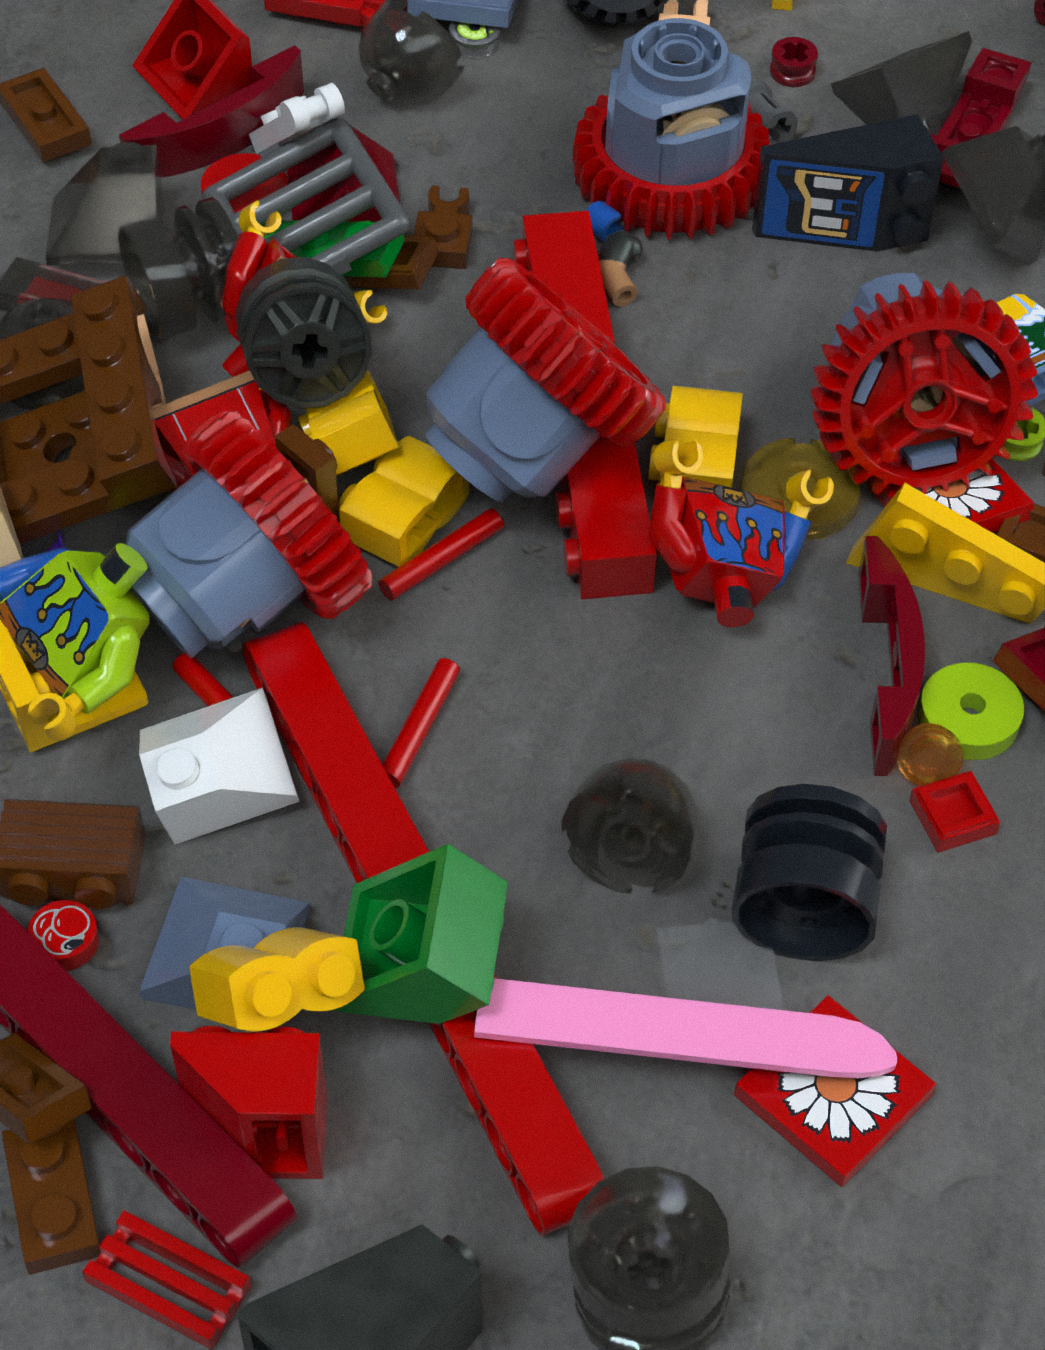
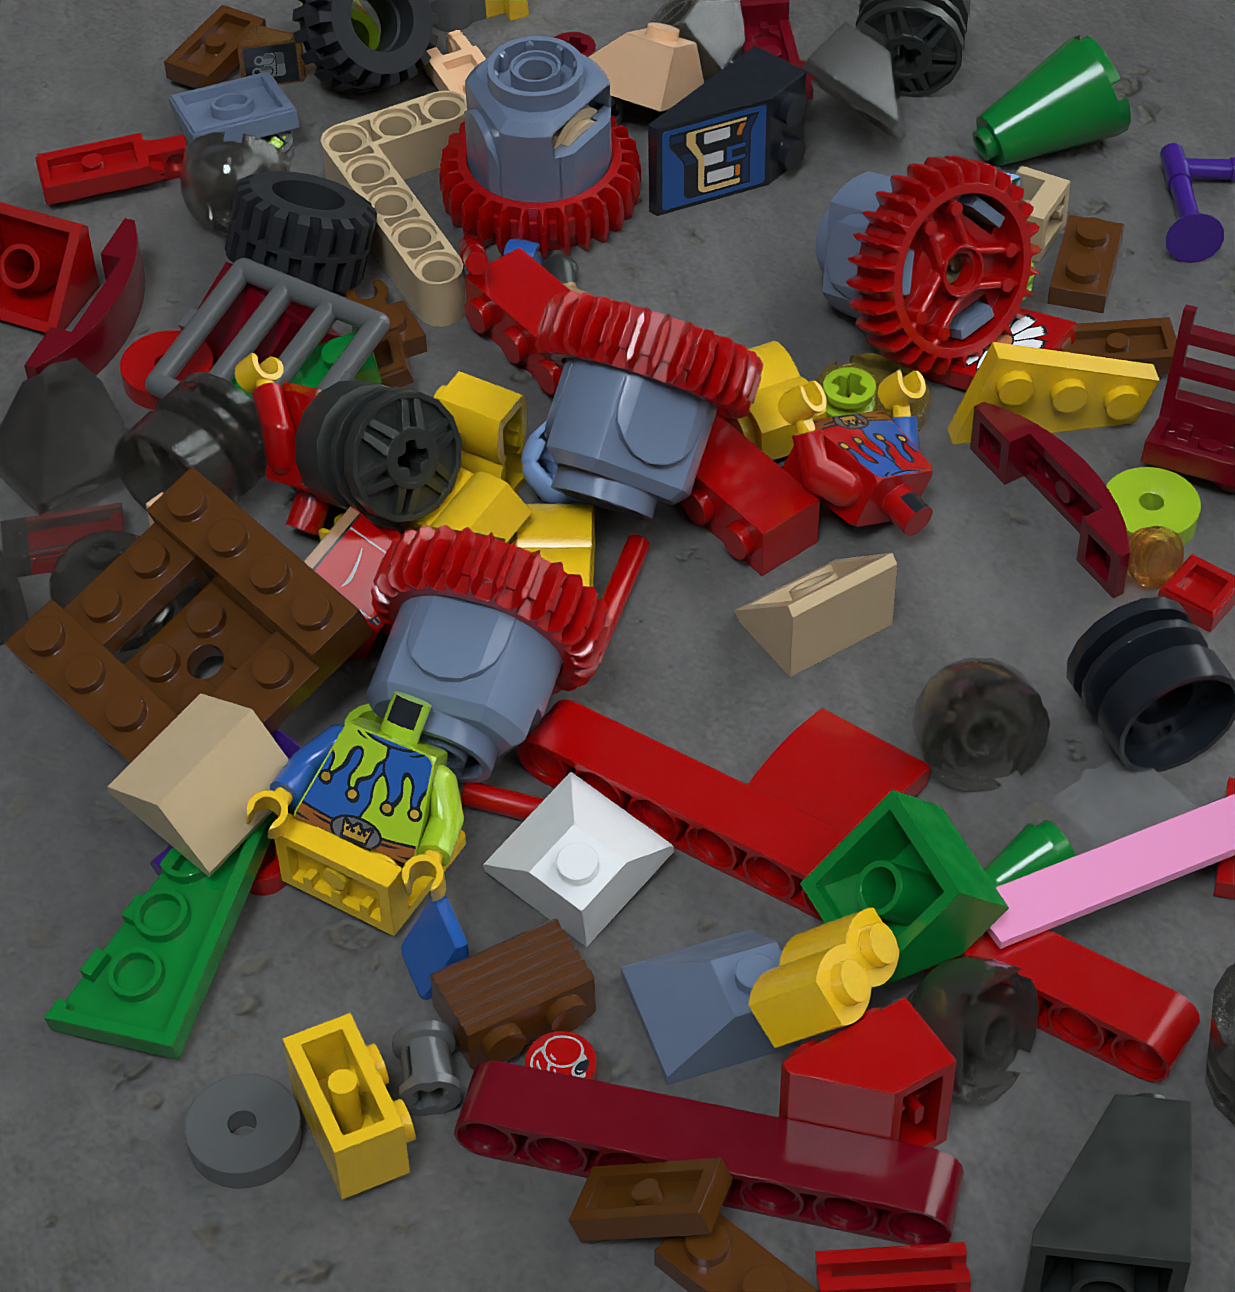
camera: 30 degrees left, 5 degrees down
(52, 774) = (433, 944): none -> blue slope
(298, 117) = (190, 279): white plate -> none
(398, 1094) = (982, 1018): none -> clear smoke cylinder
(413, 356) = (490, 426): none -> yellow brick
(420, 117) = (302, 228): none -> black tyre
(420, 720) = (713, 725): red piece -> none
(486, 807) = (838, 771): none -> red slope
(531, 79) = (373, 160): none -> tan beam
(547, 199) = (473, 254): none -> red piece
(582, 966) = (1029, 852): none -> green cone
(594, 658) = (823, 611): none -> tan slope
(776, 460) = (847, 382): none -> lime bush
(822, 93) = (651, 66): none -> light nougat slope

